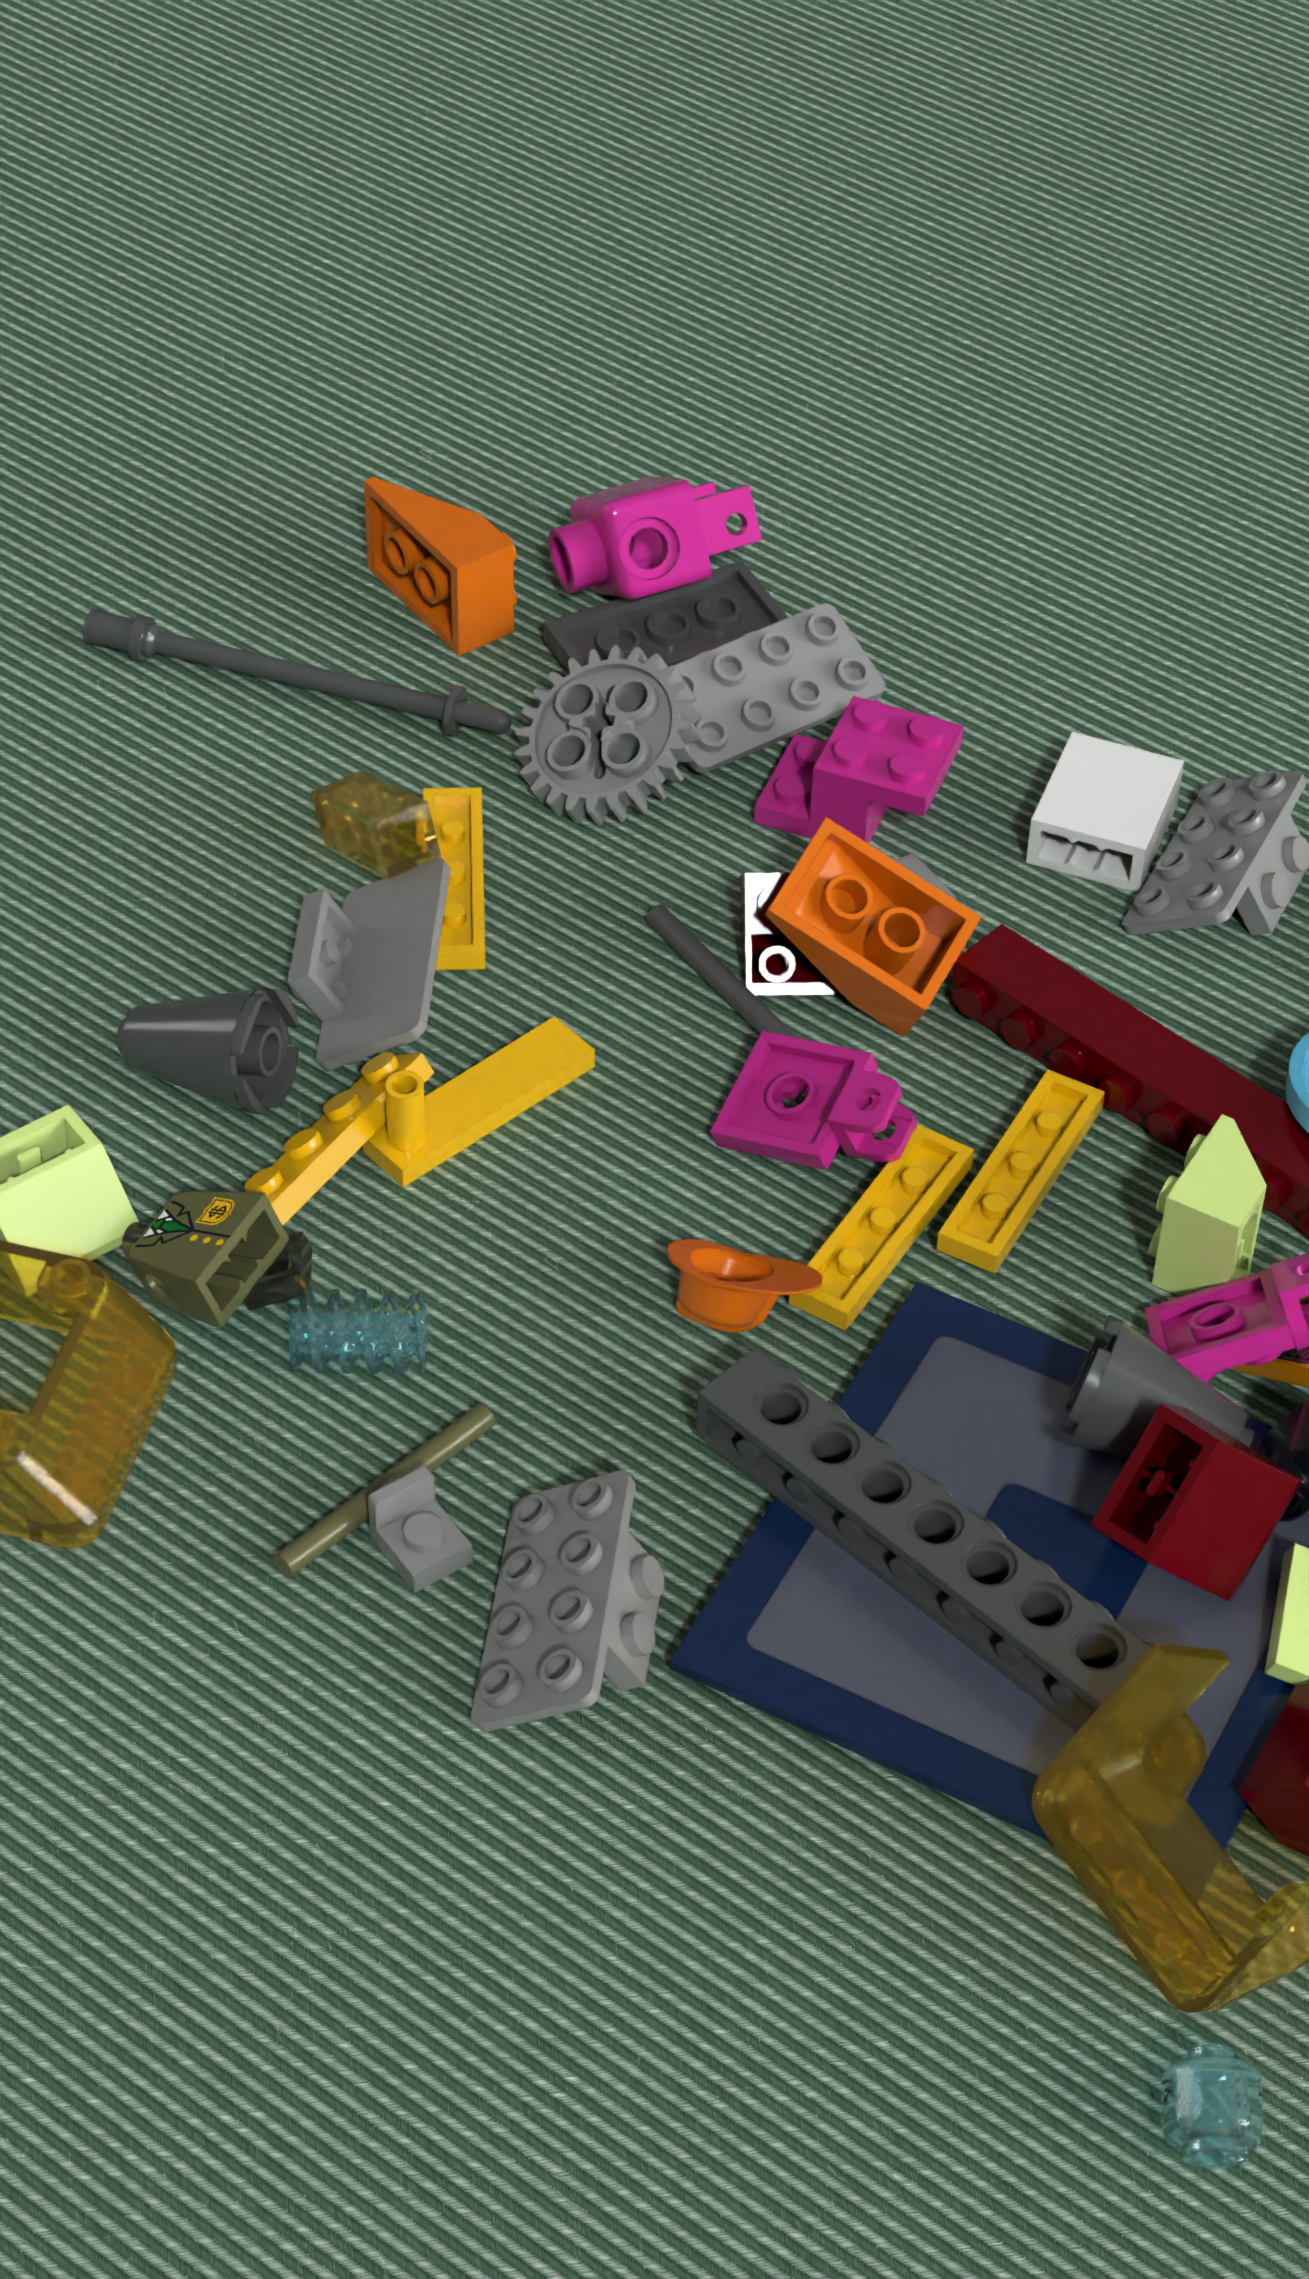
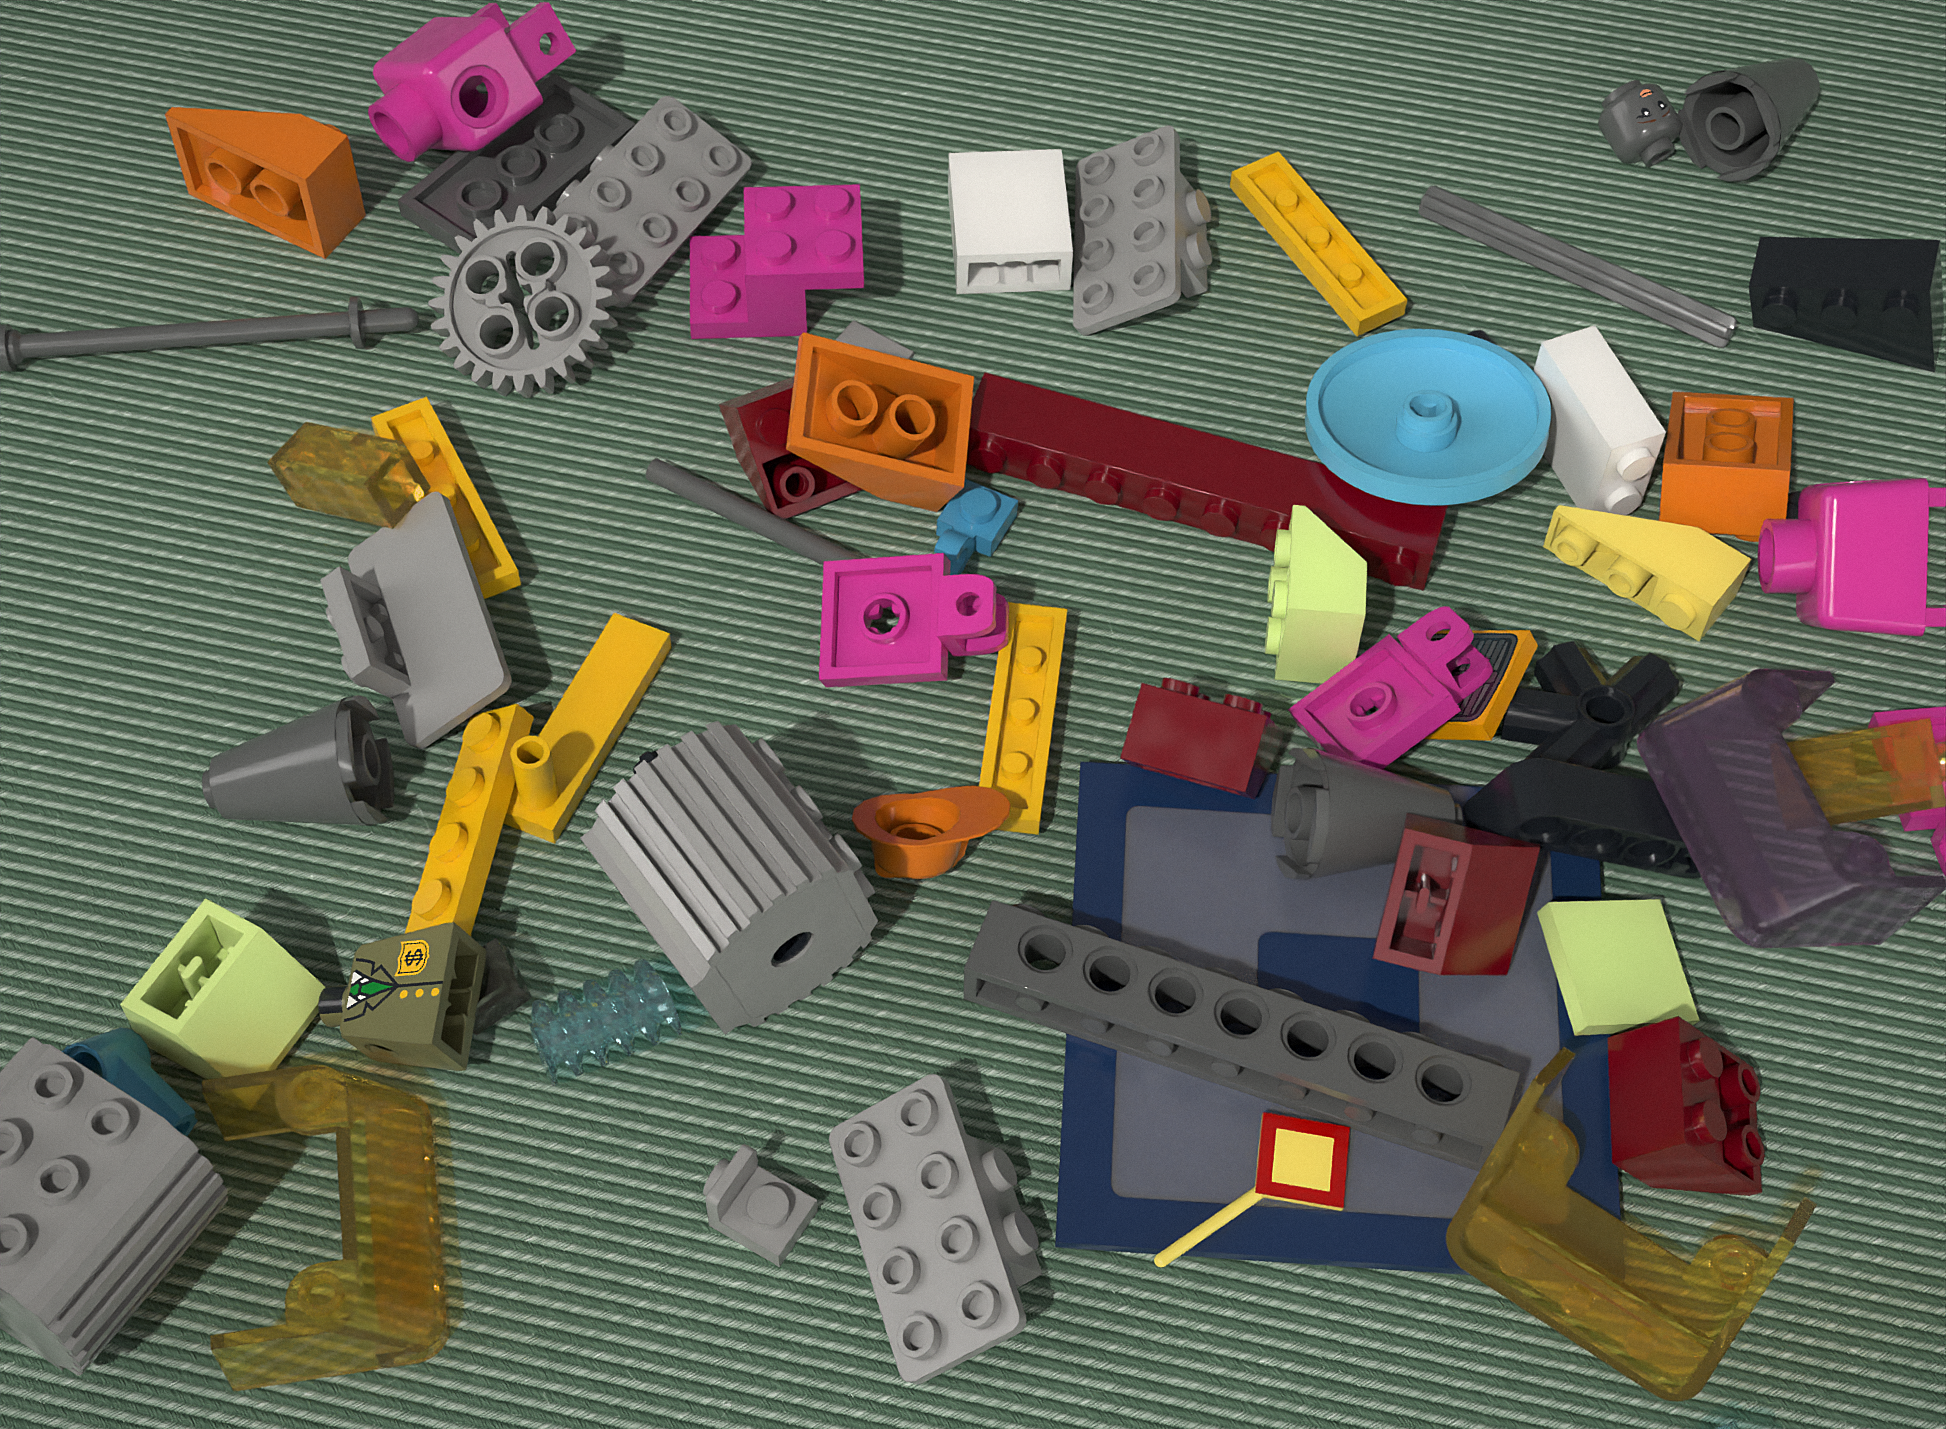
camera: 25 degrees left, 10 degrees up
(355, 1510) = (690, 1195): olive bar -> none
(526, 1242) = (733, 874): none -> light grey piece
(927, 1679) = (1295, 1164): none -> piece
(930, 1053) = (973, 522): none -> dark azure plate
(1020, 1171) = (1114, 612): yellow plate -> none
(1033, 1291) = (1202, 740): none -> dark red slope

